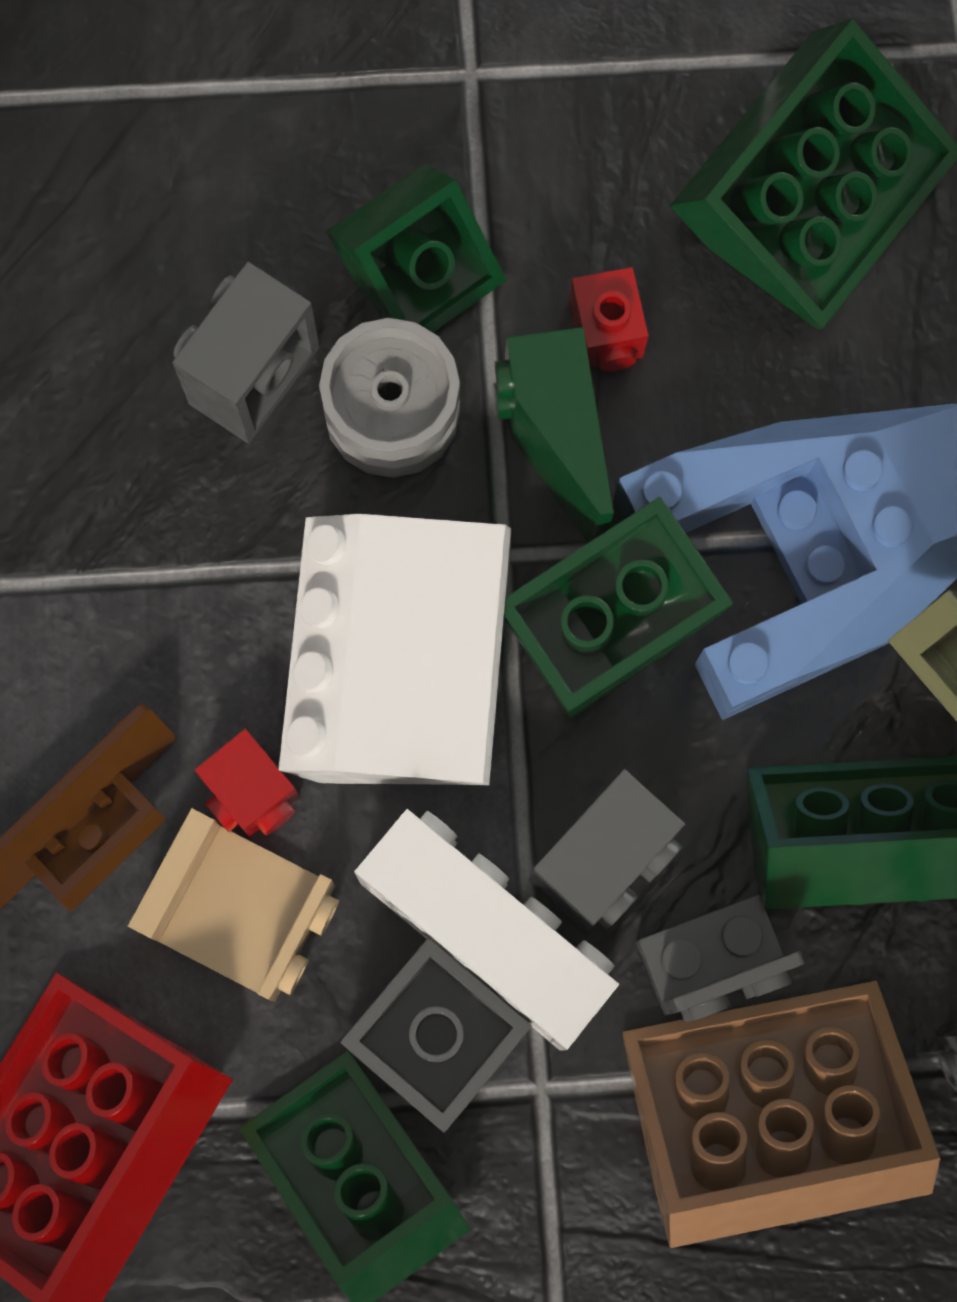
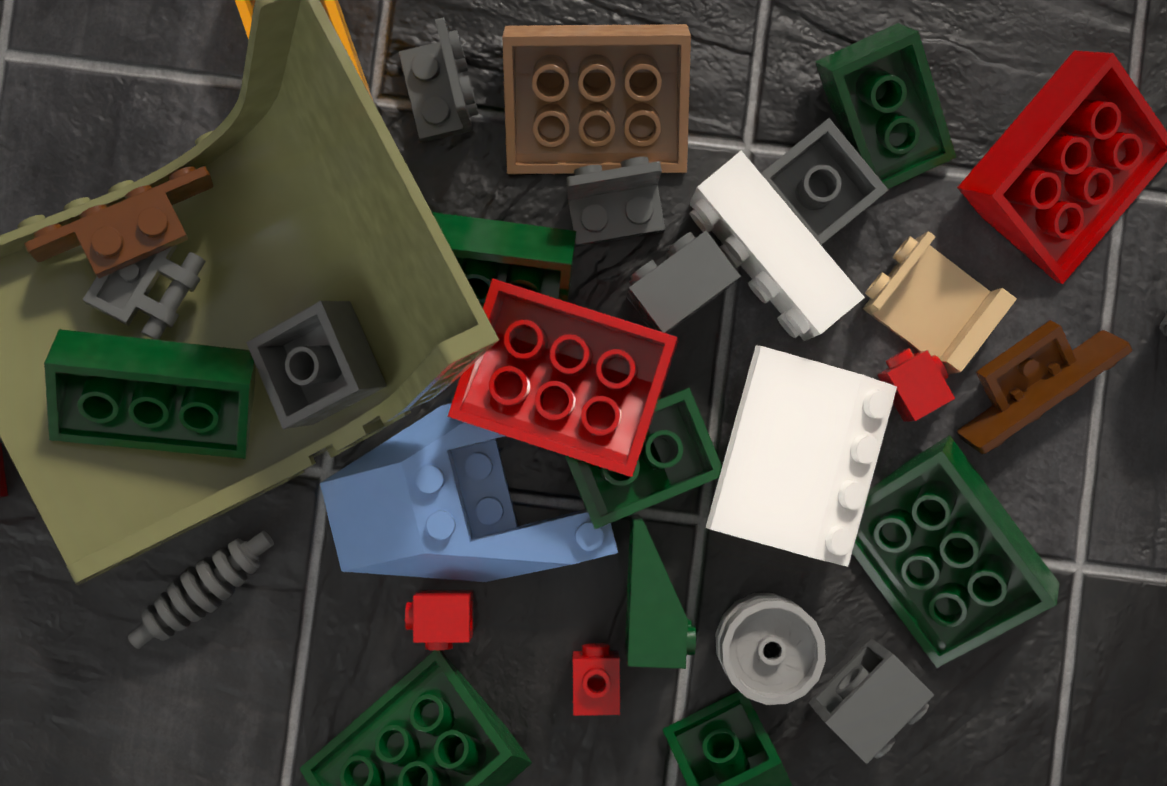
camera: 170 degrees left, 10 degrees up
(164, 568) = (950, 555): none -> dark green slope
(748, 686) = (565, 378): none -> red slope
(828, 363) = (440, 618): none -> red brick

